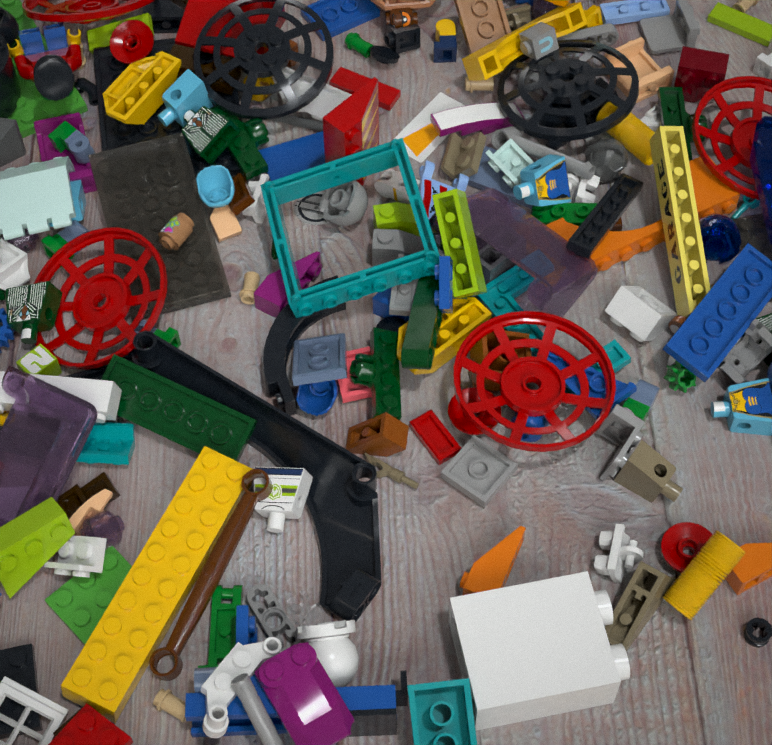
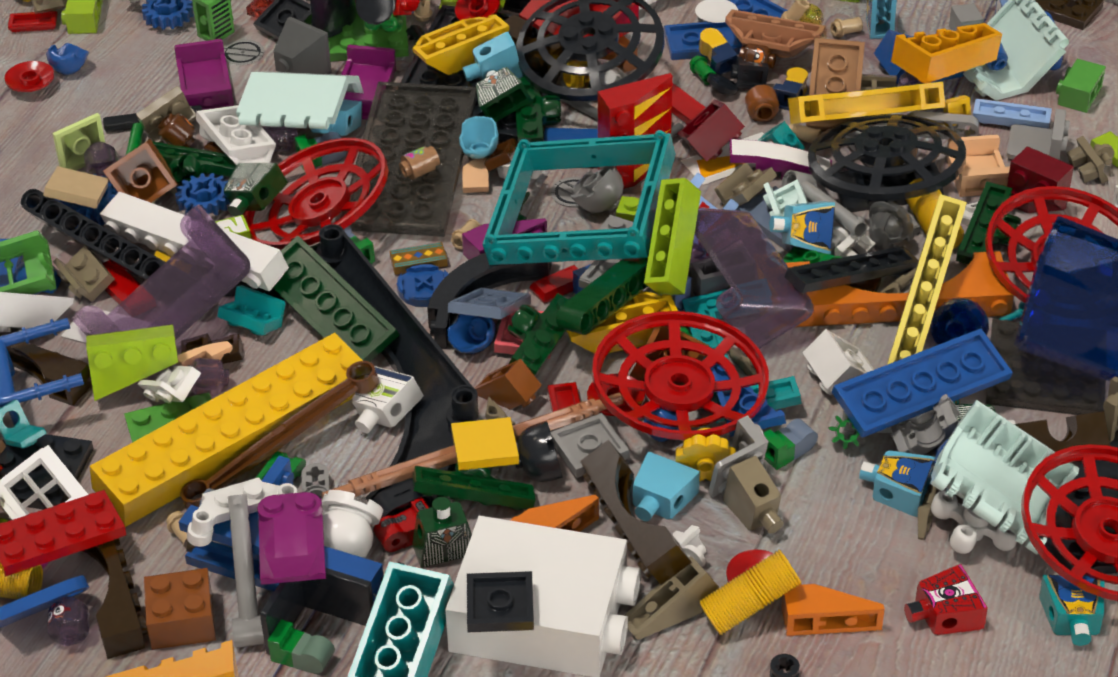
camera: 25 degrees right, 15 degrees down
(71, 139) = (371, 67): leg -> none
(220, 328) = (412, 256): none -> pearl gold tile
(240, 355) = (419, 284): none -> blue tile
(356, 314) = (558, 282): none -> red tile
(364, 22) = (717, 50): none -> leg
(373, 619) = (398, 530): none -> red leg
(383, 523) = (447, 456): none -> nougat axle
(404, 513) = (484, 443): none -> yellow tile
(407, 108) = (711, 130): none -> dark red slope
(410, 555) = (474, 486): none -> dark green plate
(414, 615) = (441, 533): none -> dark green torso
(429, 64) = (762, 103): none -> dark orange head
(444, 273) = (635, 265): blue plate -> none
(448, 501) = (538, 453): none -> black cylinder
(464, 93) = (782, 135): none -> teal bracket
(525, 686) = (500, 601): none -> black plate
(538, 41) = (878, 105): light grey brick -> none
(561, 339) = (743, 361): none -> dark tan hand
(564, 491) = (663, 487): none -> medium azure torso
(589, 449) = (703, 453): none -> yellow plant
(609, 563) = (653, 544): none -> dark brown arch
(635, 213) = (900, 283): none -> dark tan hand
(722, 32) = (1094, 159): none -> dark tan hips

